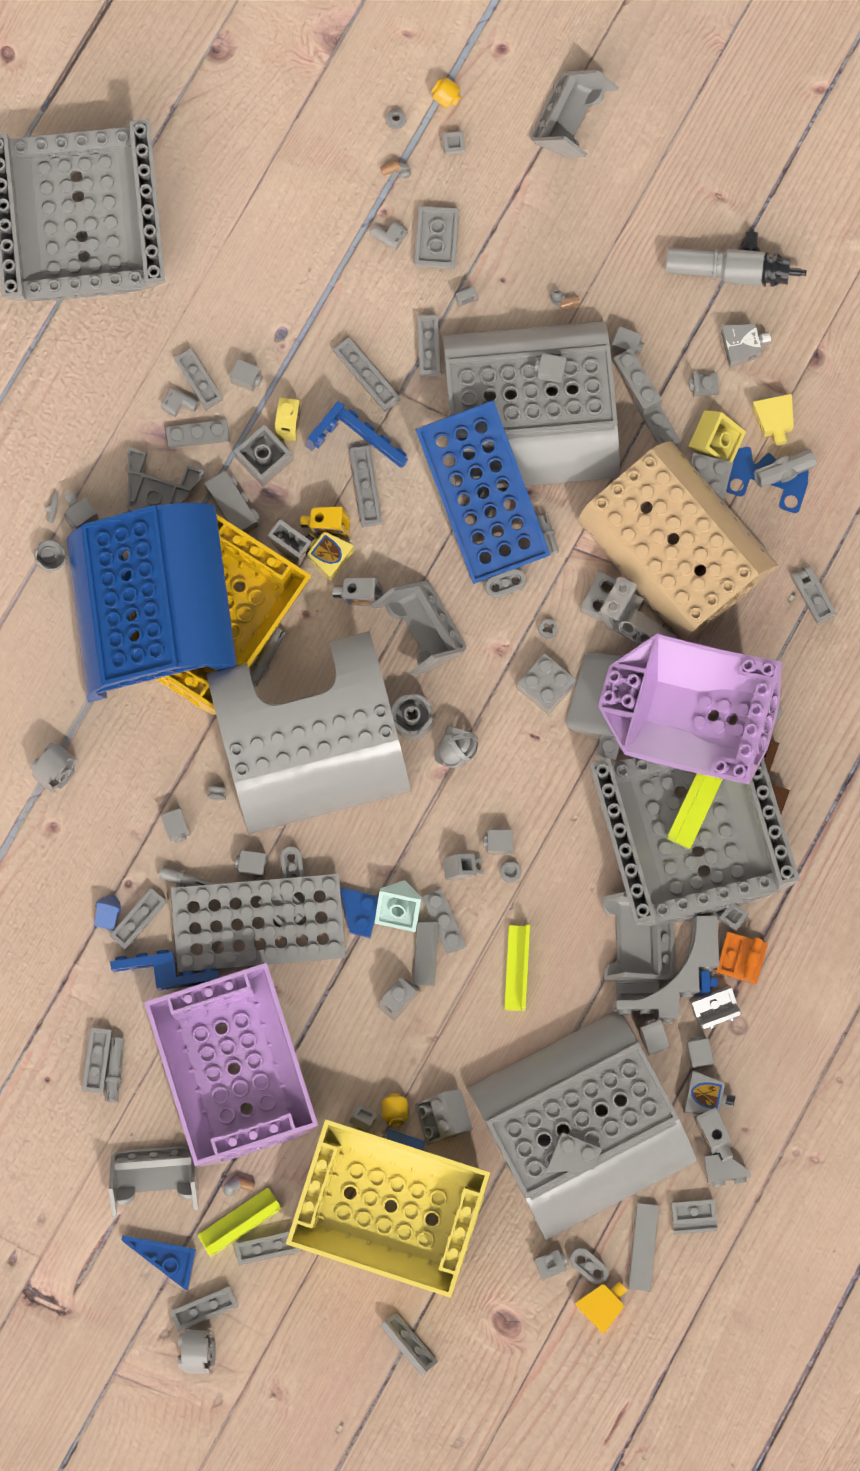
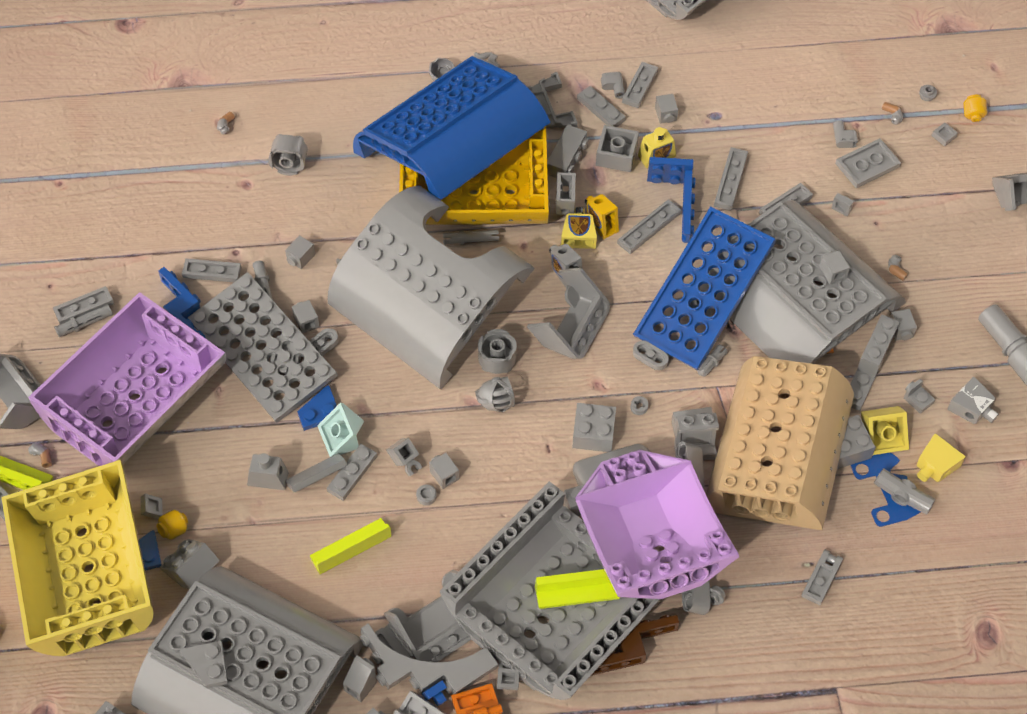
camera: 50 degrees right, 20 degrees down
(107, 912) = (203, 247): tile -> none

